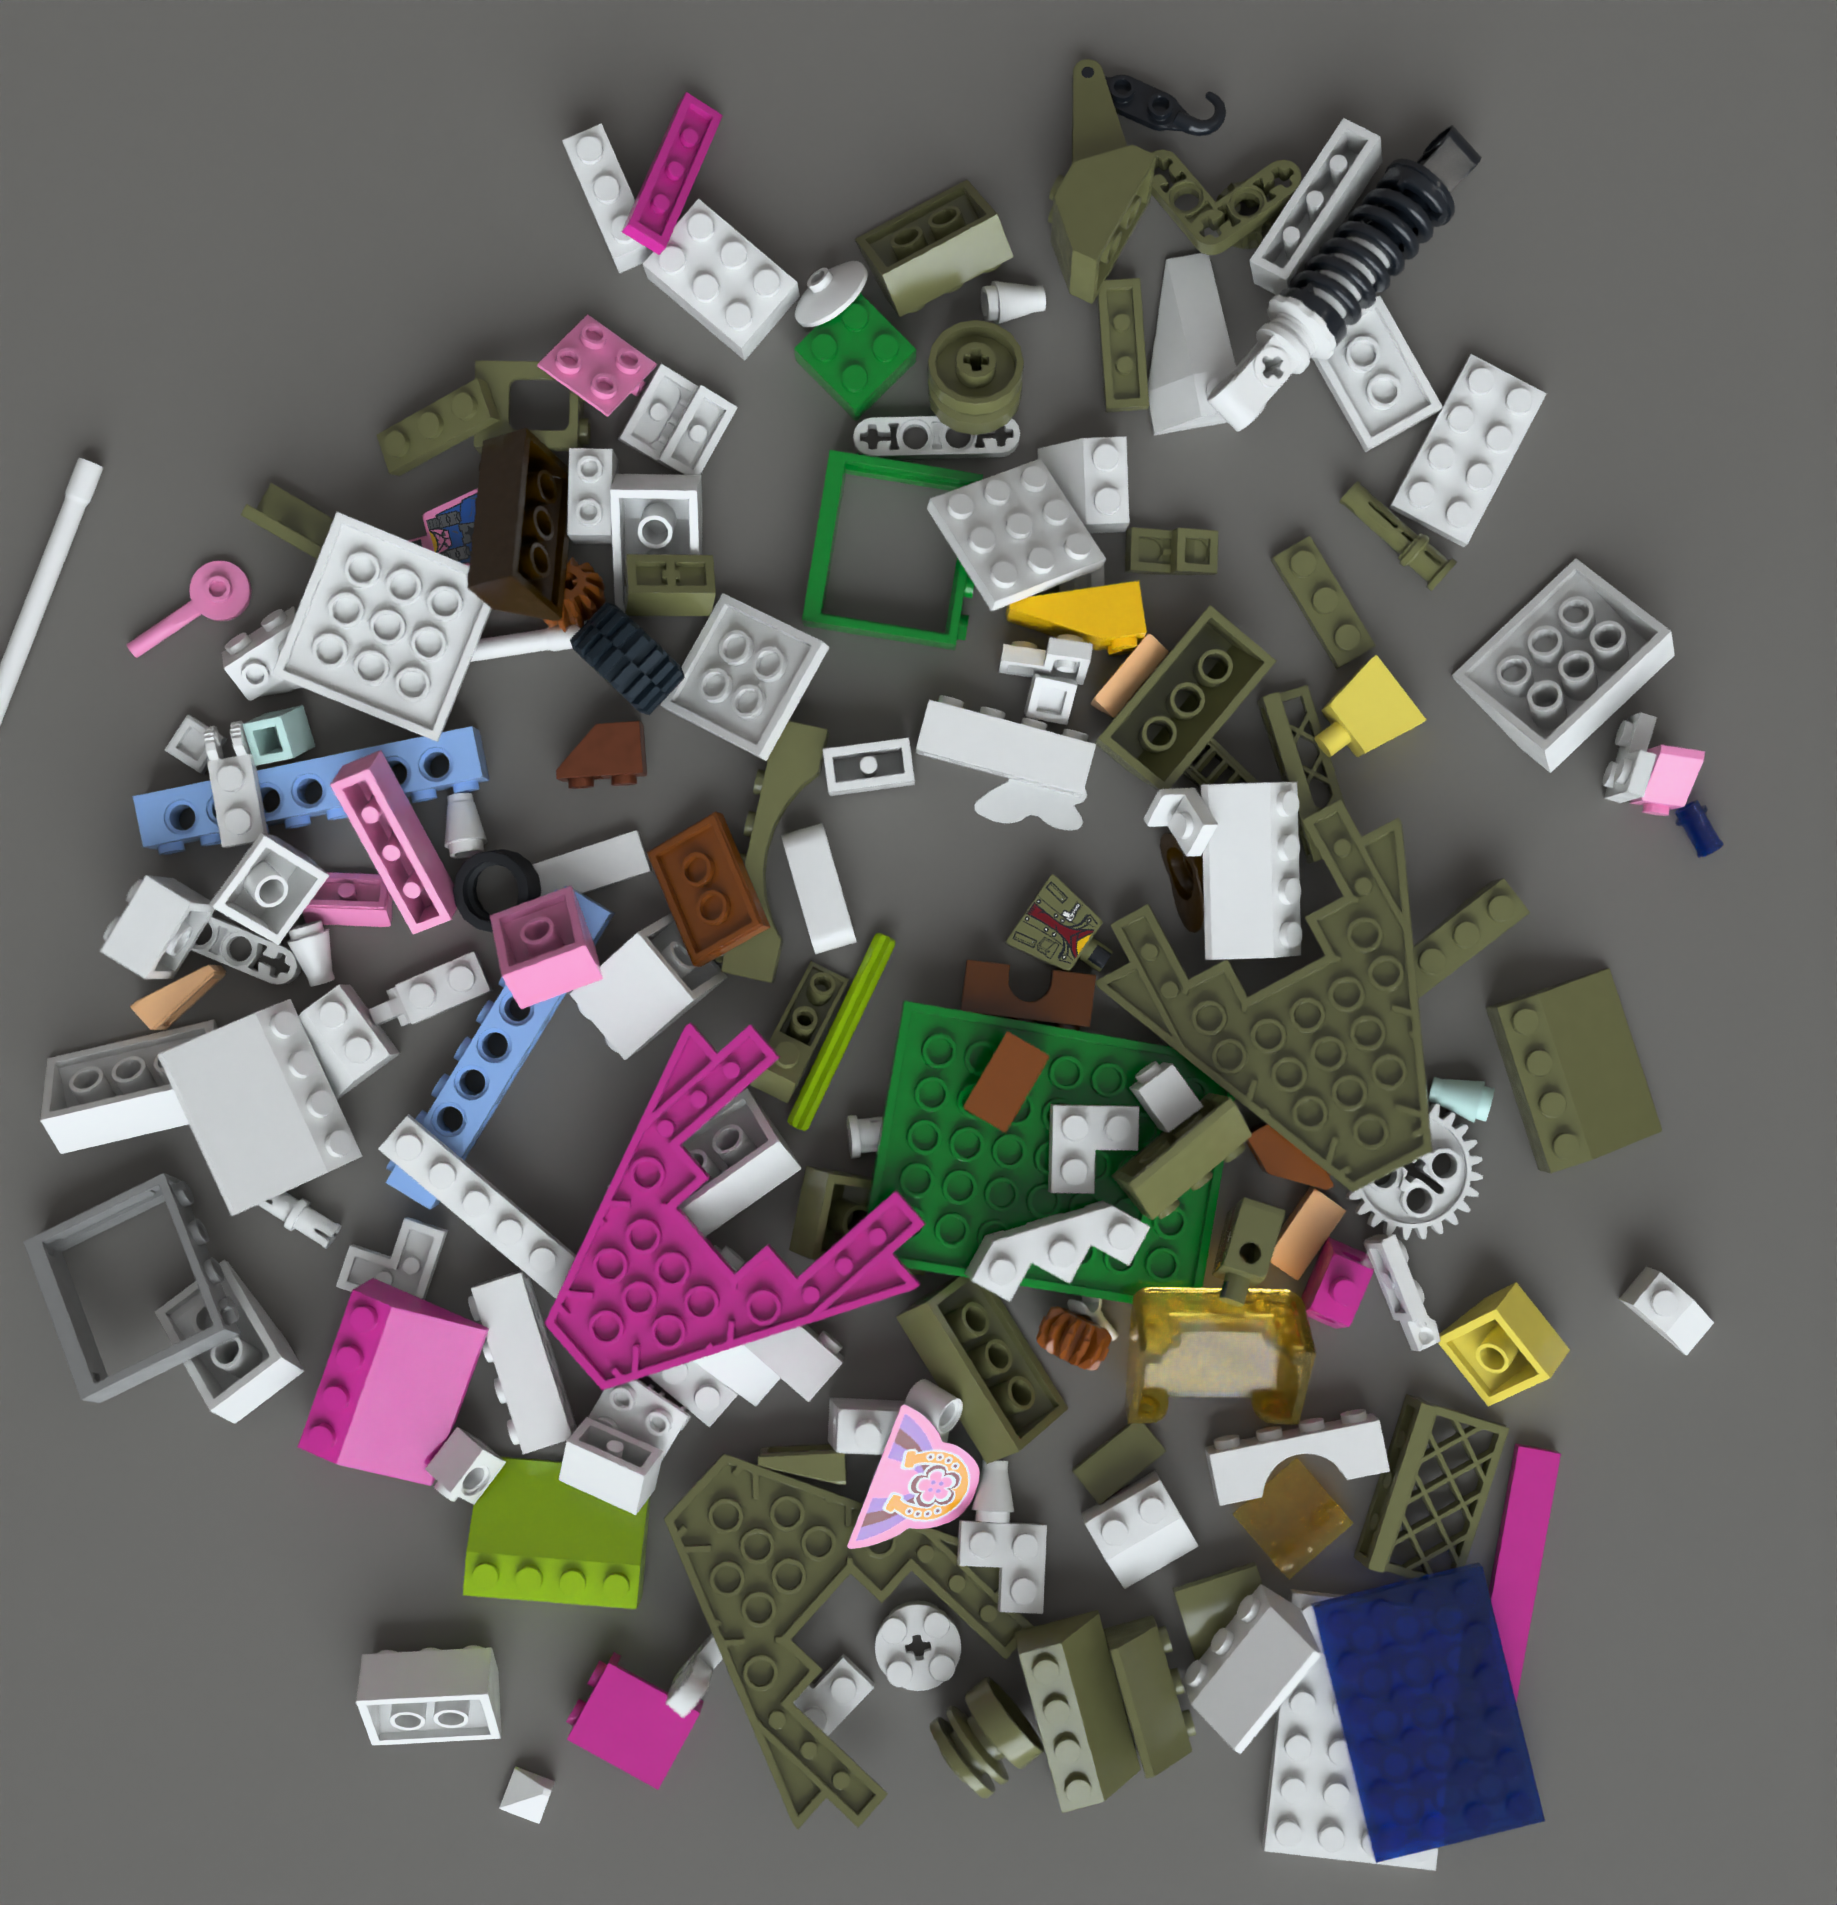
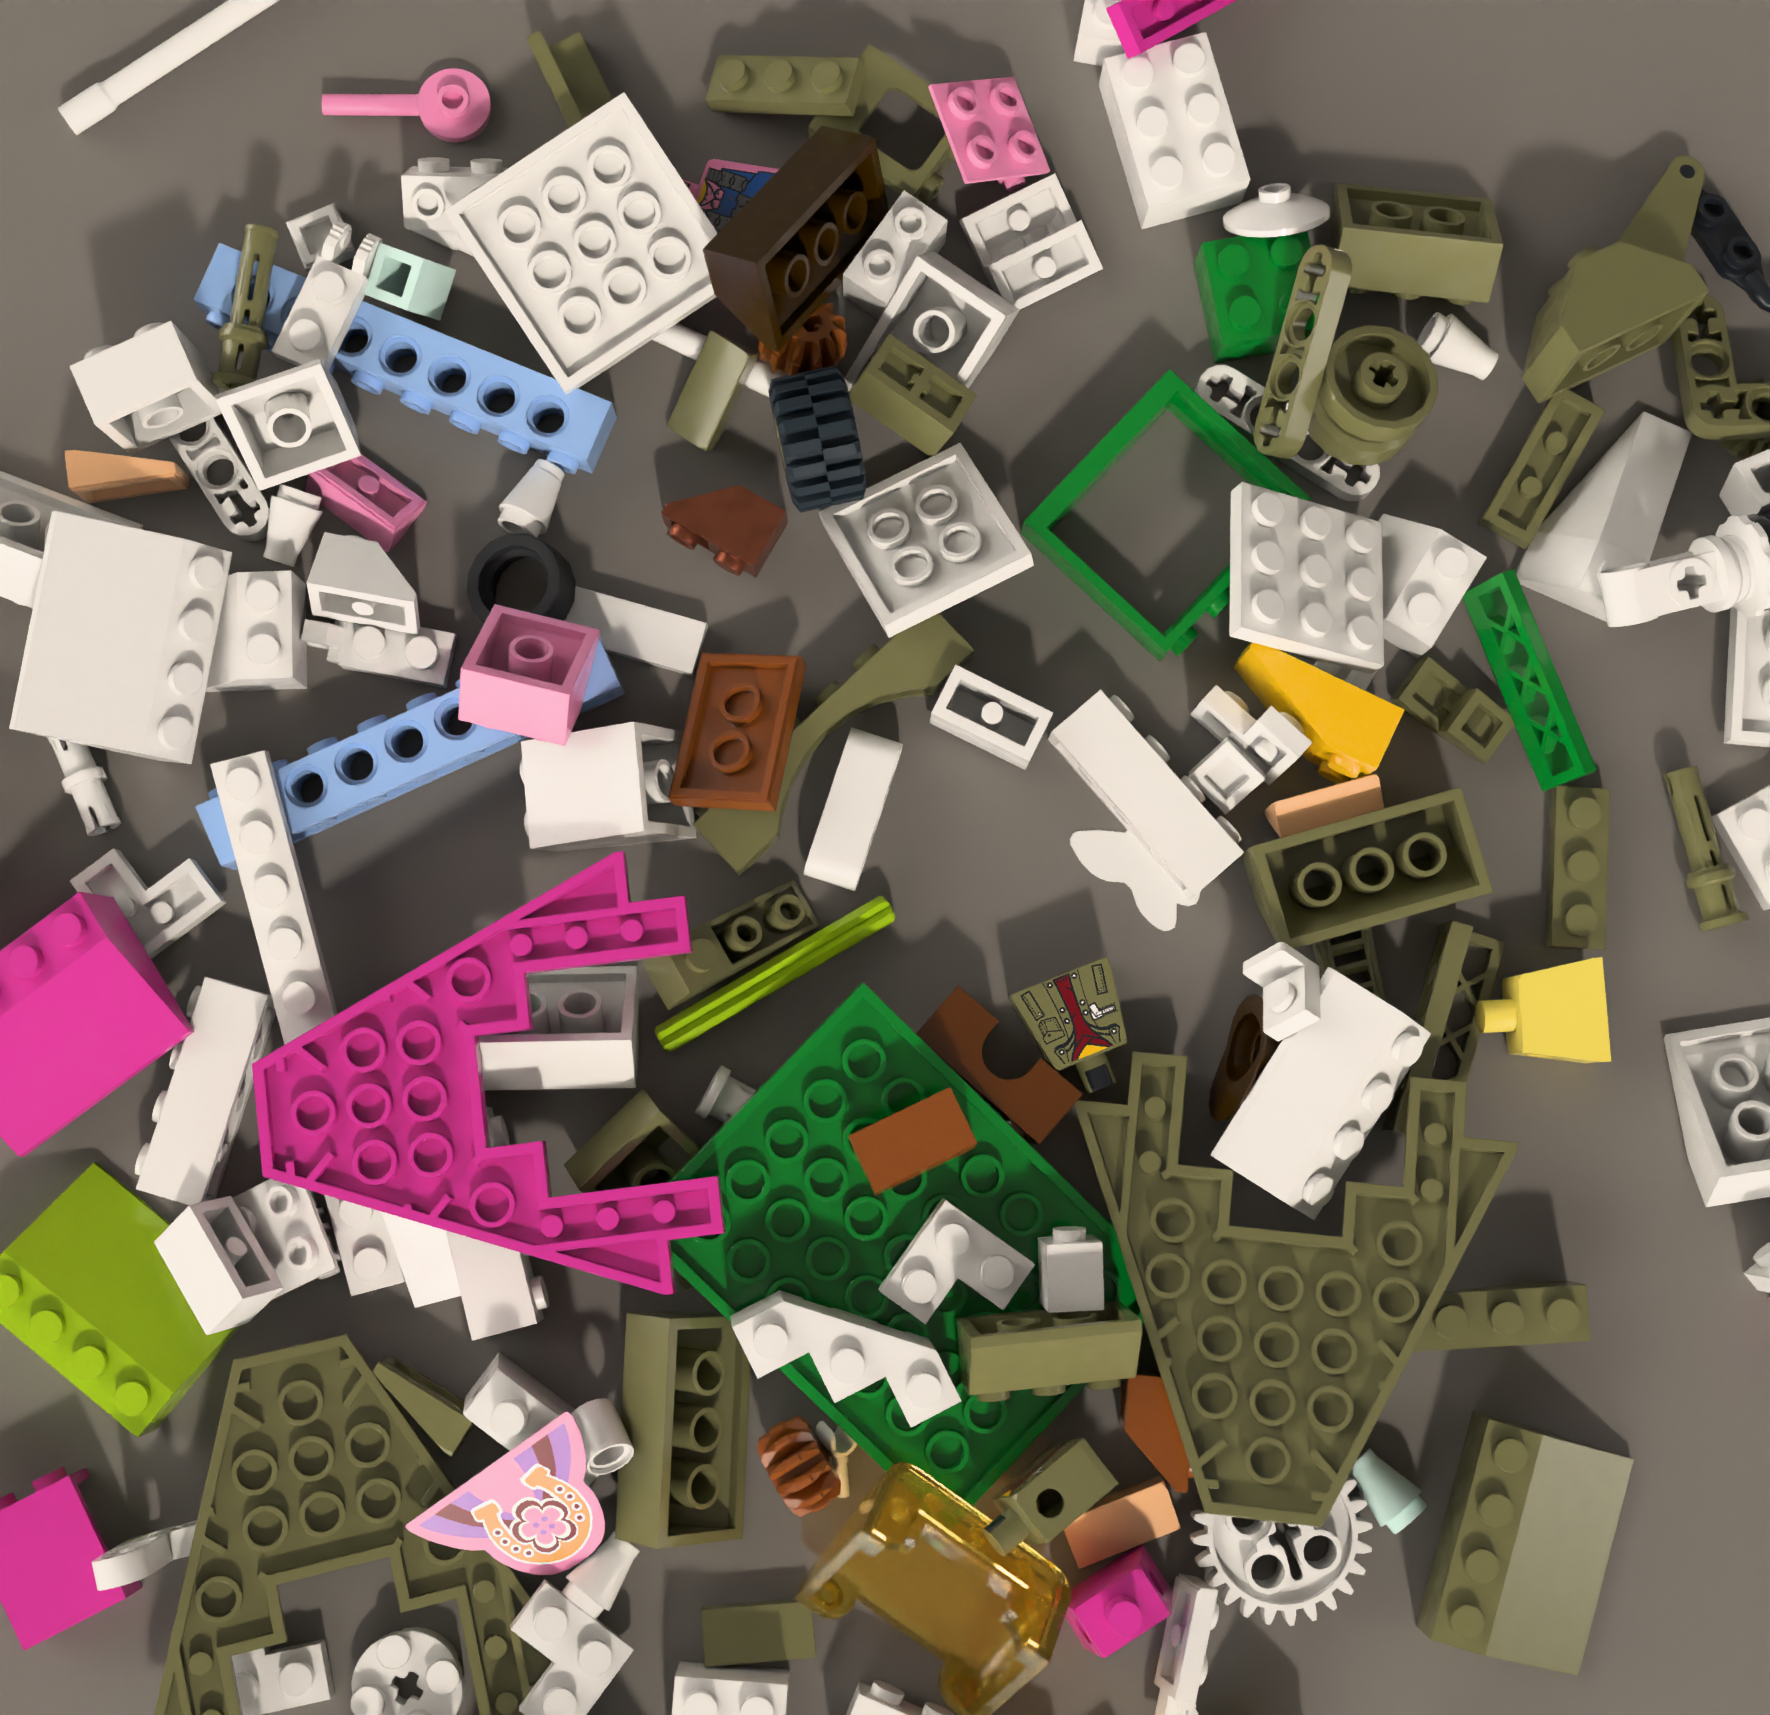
camera: 30 degrees right, 5 degrees down
(163, 781) = (236, 336): none -> olive pin
(390, 961) = (360, 585): none -> white slope
(395, 841) = (451, 463): bright pink brick -> none
(464, 1467) = (66, 1160): white brick -> none
(532, 671) = (712, 390): none -> olive slope
(894, 319) = (1305, 353): none -> olive beam
(1208, 500) = (1528, 681): none -> green fence

